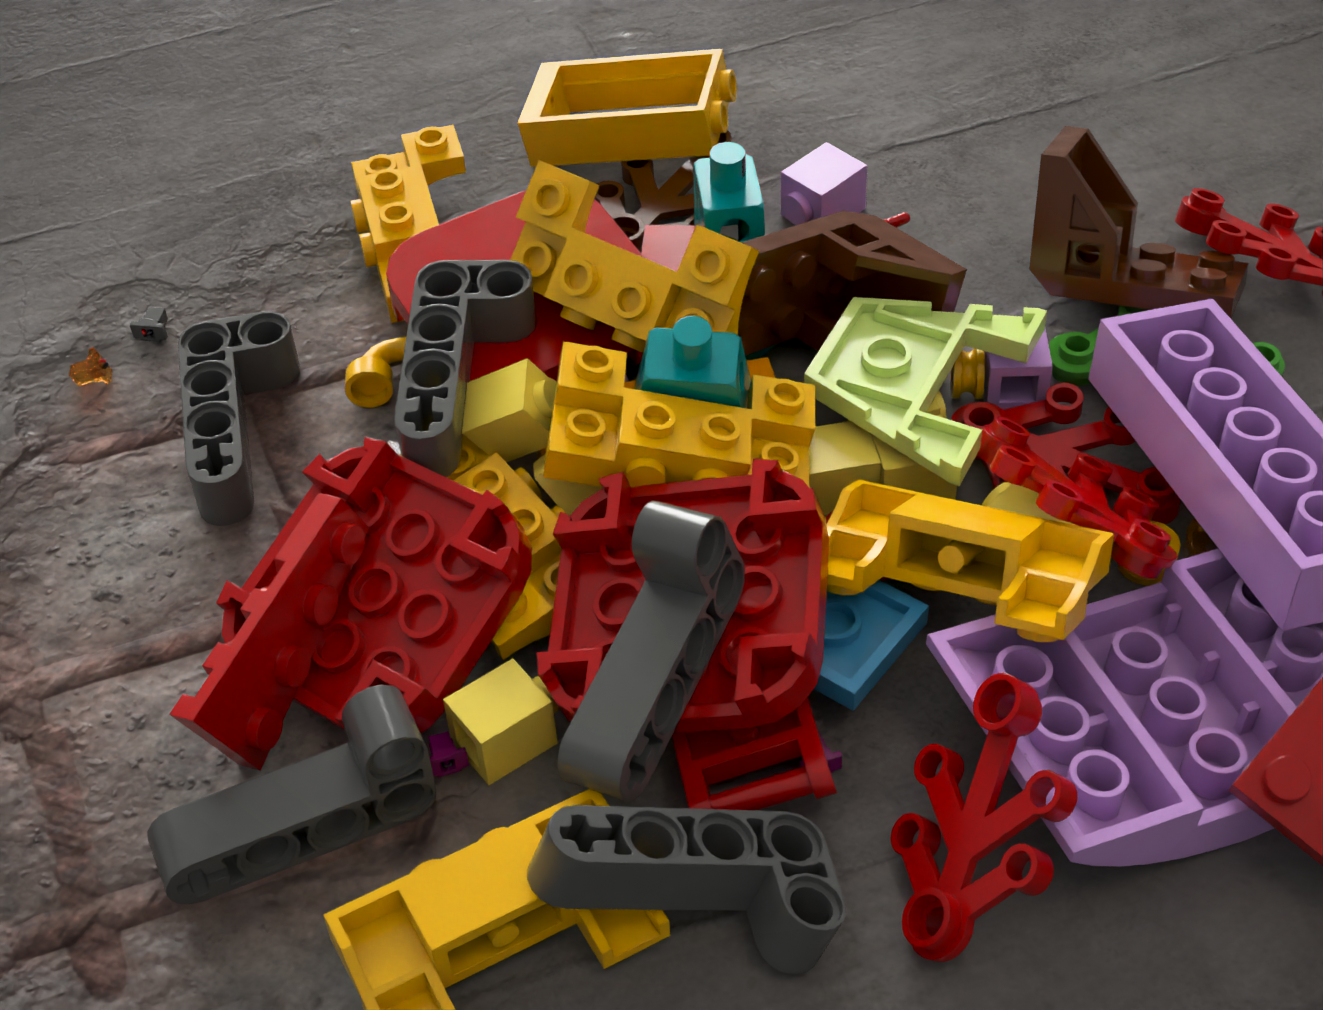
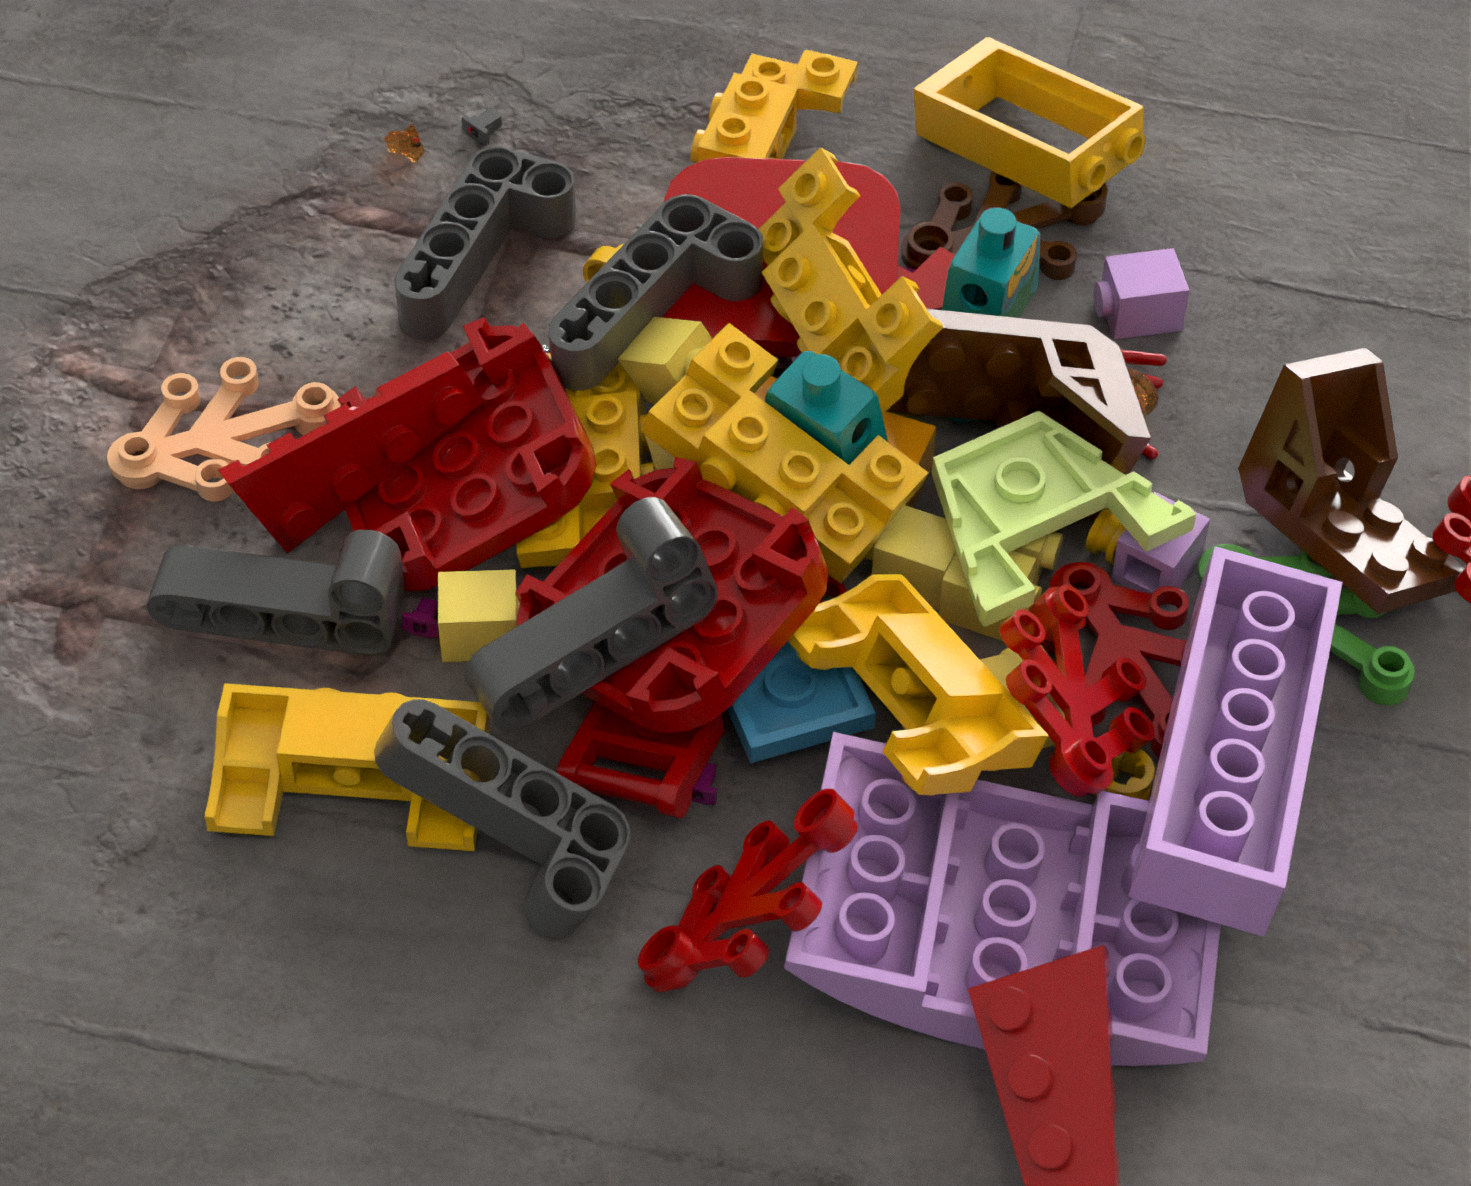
camera: 30 degrees right, 5 degrees up
(53, 754) = (153, 455): none -> light nougat plant

